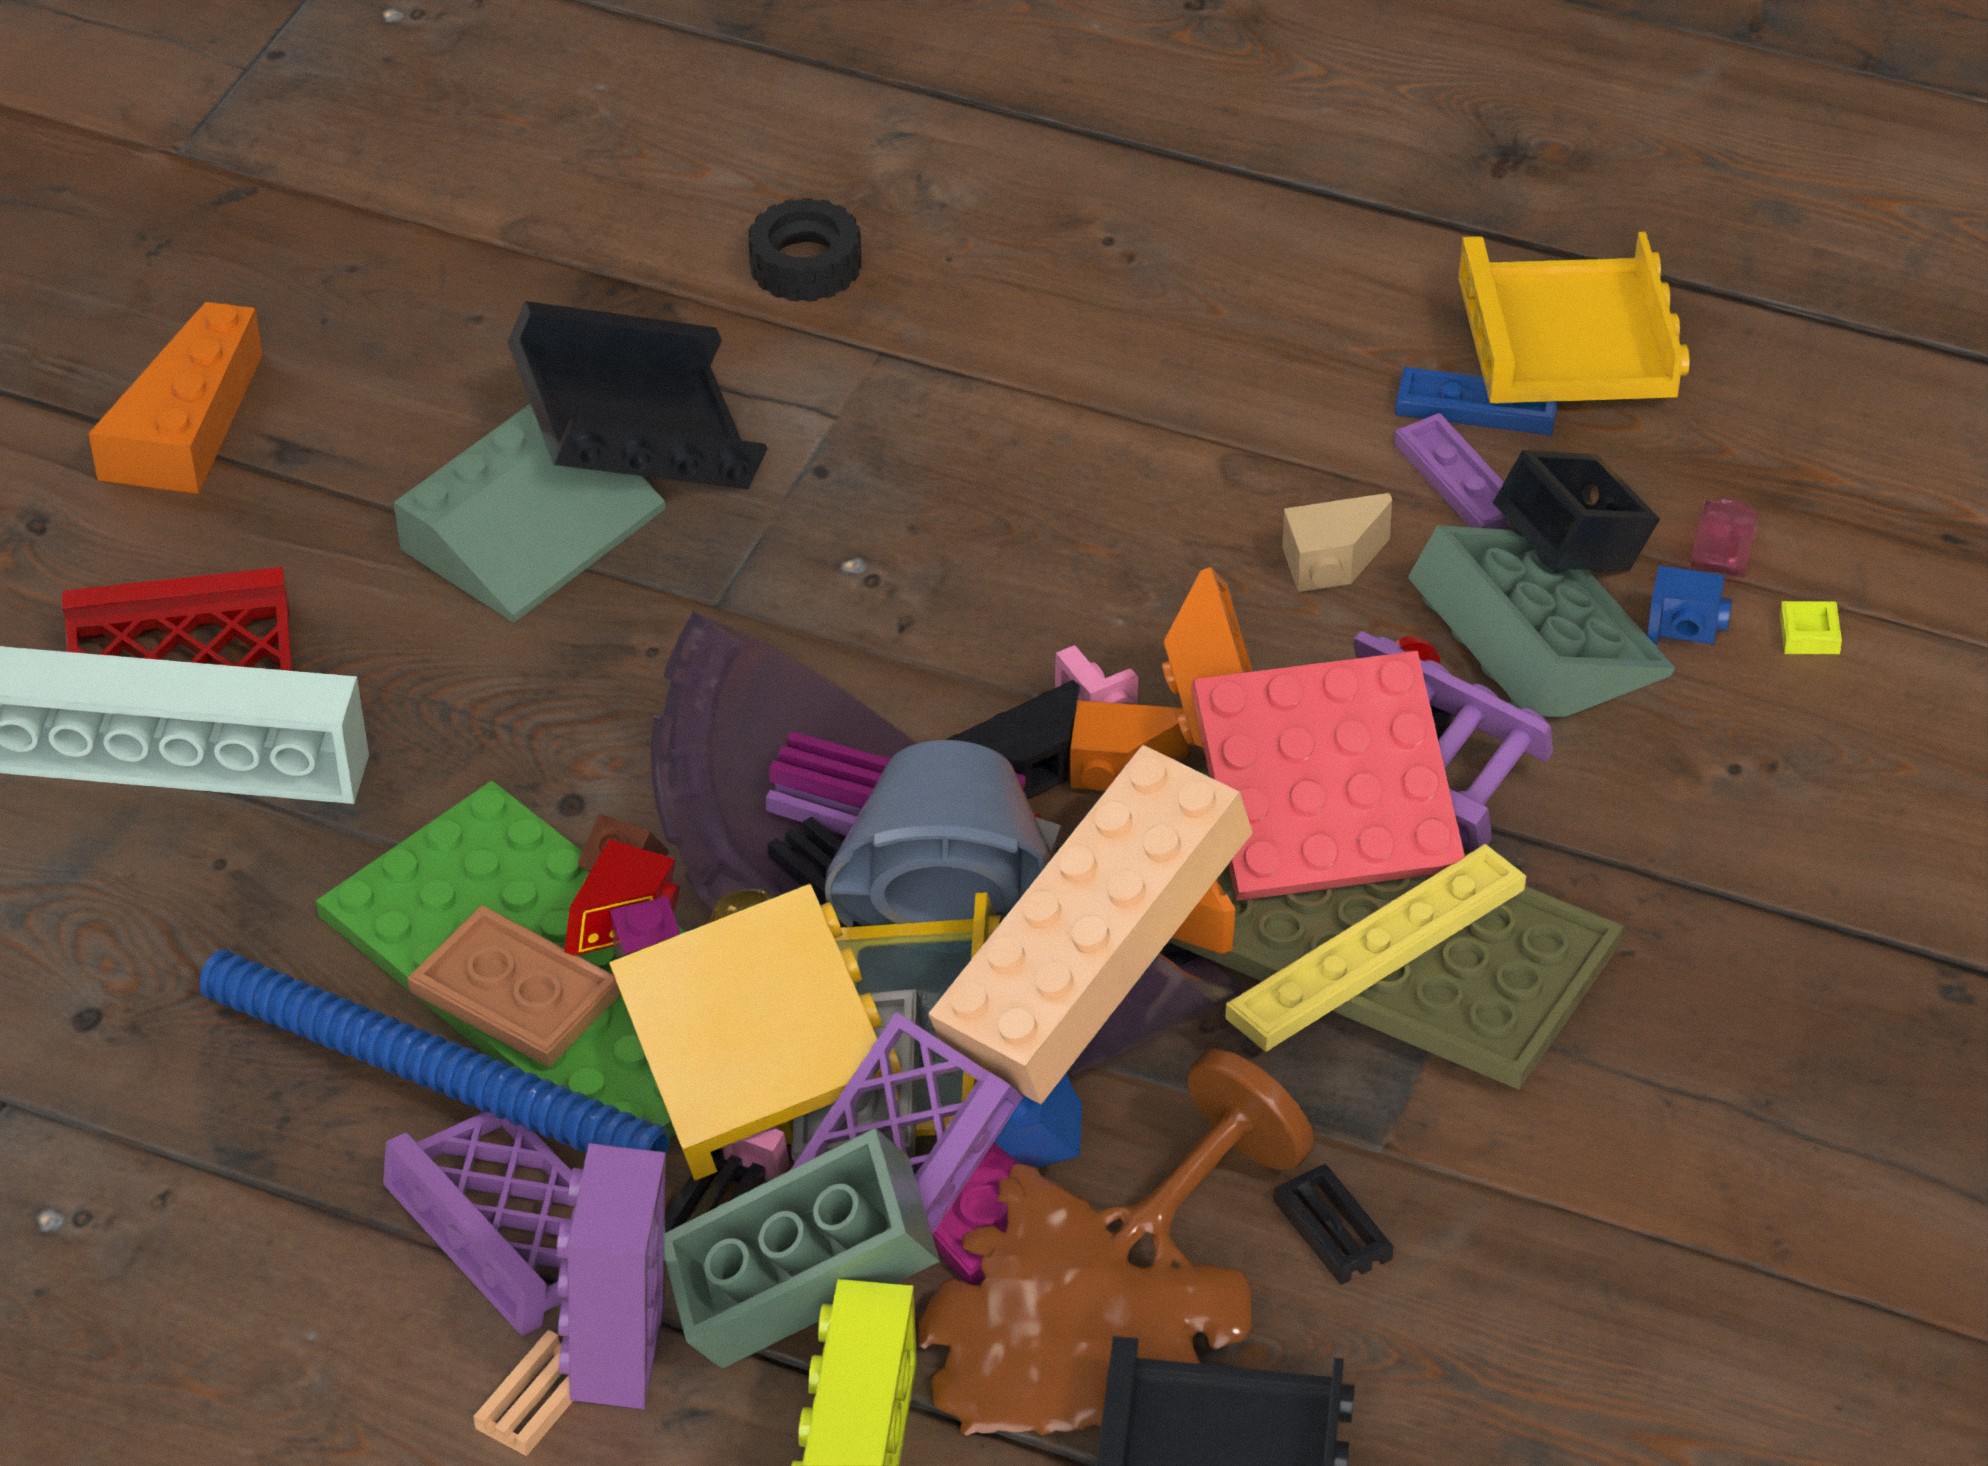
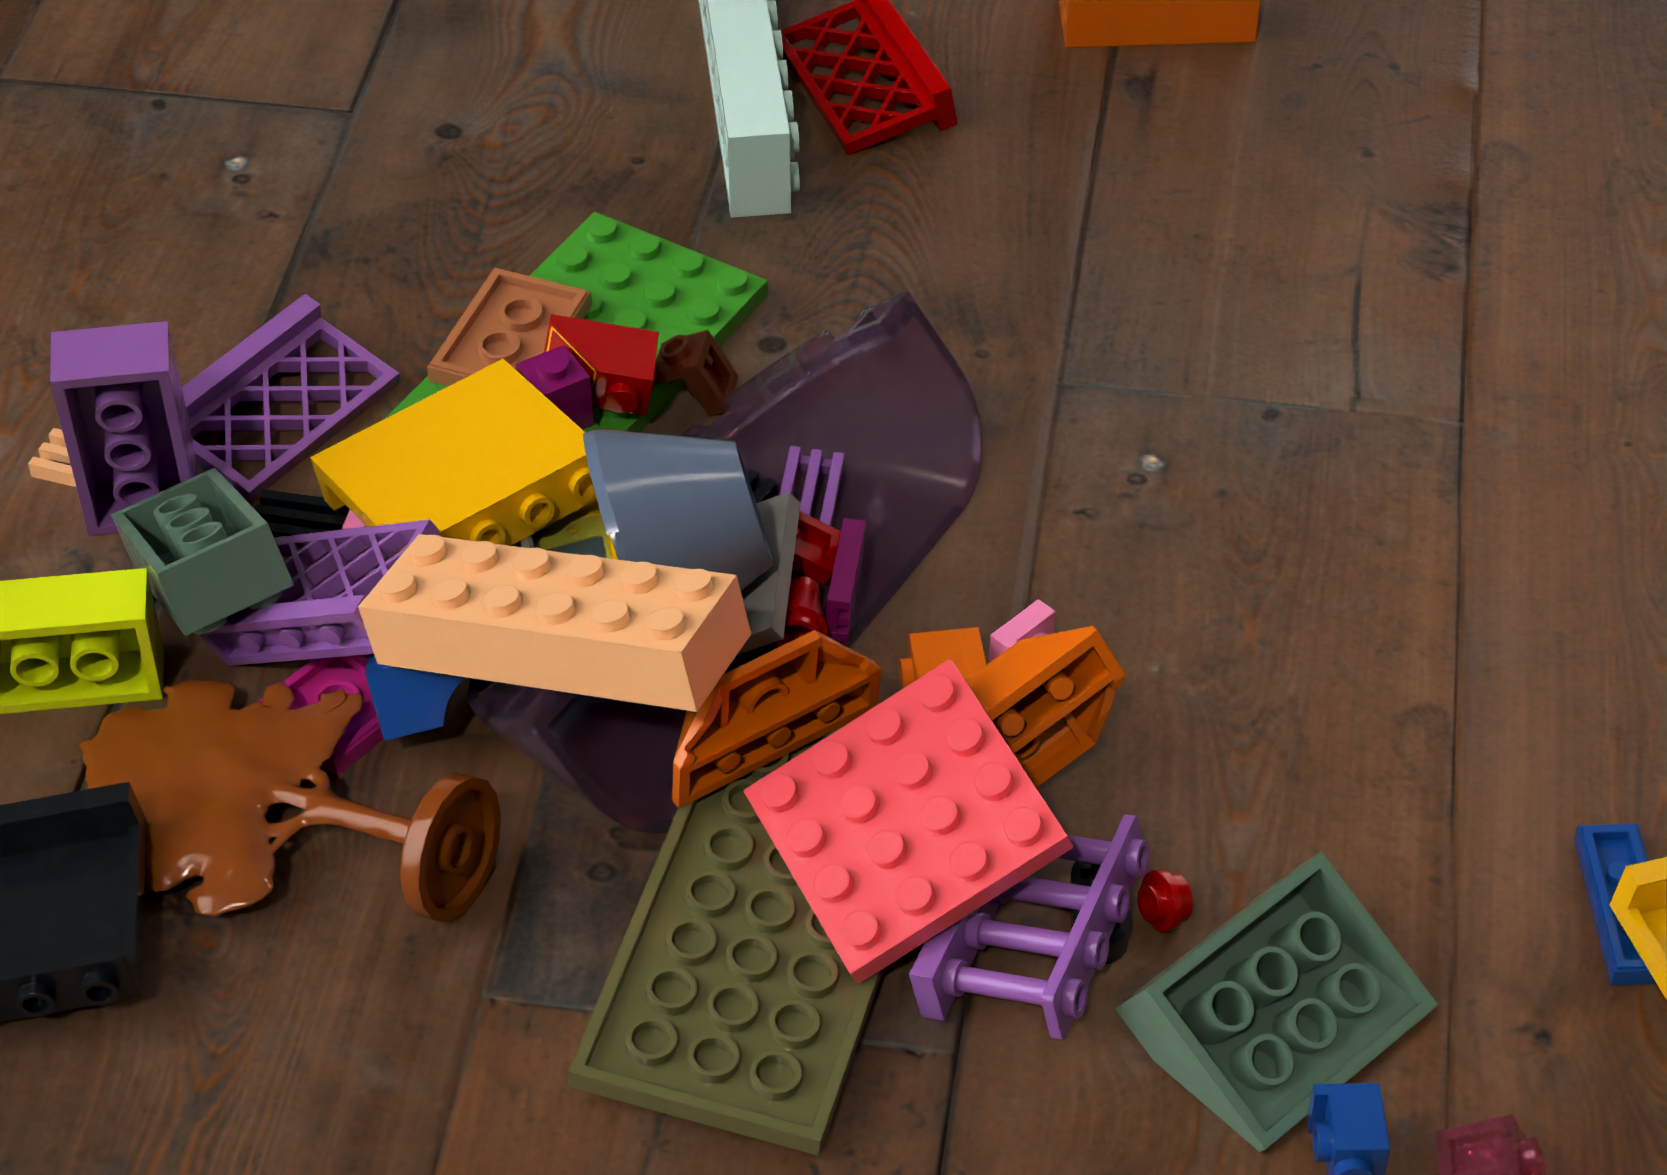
camera: 75 degrees right, 0 degrees up
(423, 1057) = (418, 305): blue piece -> none
(516, 523) = (1114, 224): sand green slope -> none
(630, 395) = (1257, 242): black panel -> none
(805, 276) = (1561, 358): black tyre -> none
(834, 762) = (833, 449): magenta tile -> none
(1033, 737) = (910, 598): black slope -> none
(1335, 539) = (1322, 805): tan slope -> none
(1337, 1263) = (378, 972): black tile -> none
(1374, 947) = (714, 922): light yellow tile -> none
(1453, 470) = (1492, 906): medium lavender tile -> none
(1553, 509) = (1430, 989): black piece -> none

